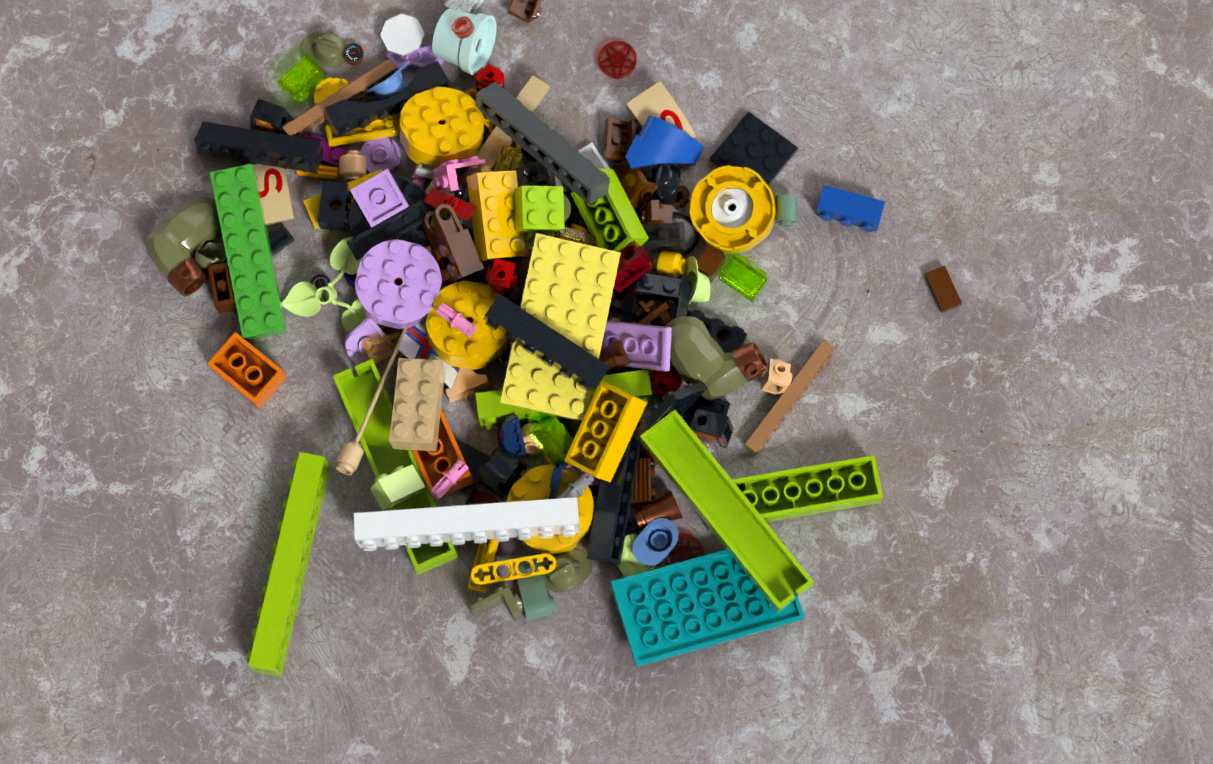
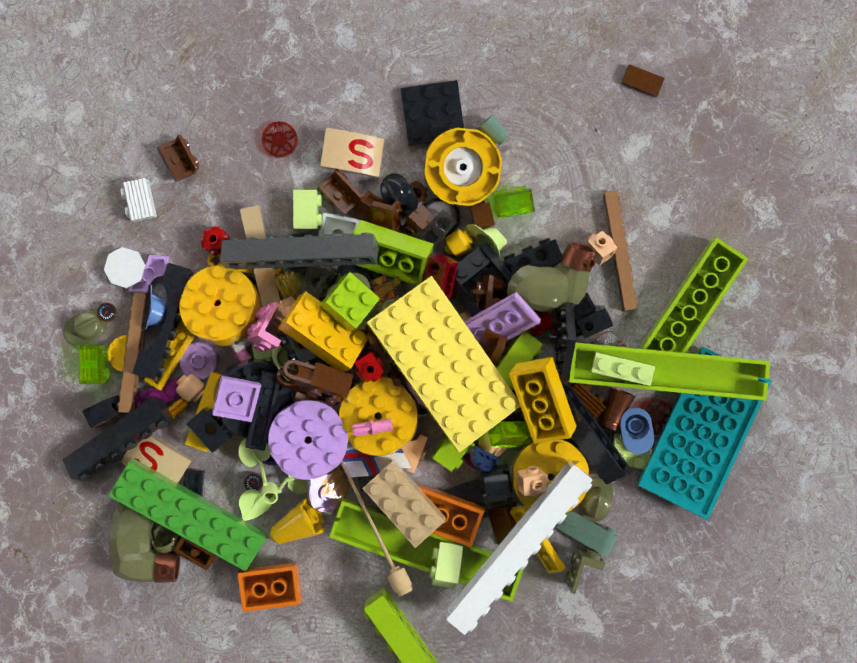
camera: 50 degrees left, 15 degrees up
(320, 346) = (298, 524): none -> yellow cone
(449, 479) = (475, 529): bright pink axle -> none
(461, 208) = (281, 356): red piece -> none
(463, 27) = (164, 228): clear red tile -> none
(468, 52) = (170, 231): light aqua piece -> none
(512, 565) = (573, 540): yellow beam -> none
(528, 480) = (531, 481): none -> light nougat brick
(546, 343) = (450, 387): black brick -> none
(556, 480) = (540, 459): dark blue tile -> none
(577, 487) = (558, 456): light grey axle -> none
(582, 126) = (306, 210): none -> yellowish green brick
(662, 144) = (373, 171): blue panel -> none
(692, 469) = (622, 368): none -> yellowish green brick
(850, 208) = (532, 87): blue brick -> none

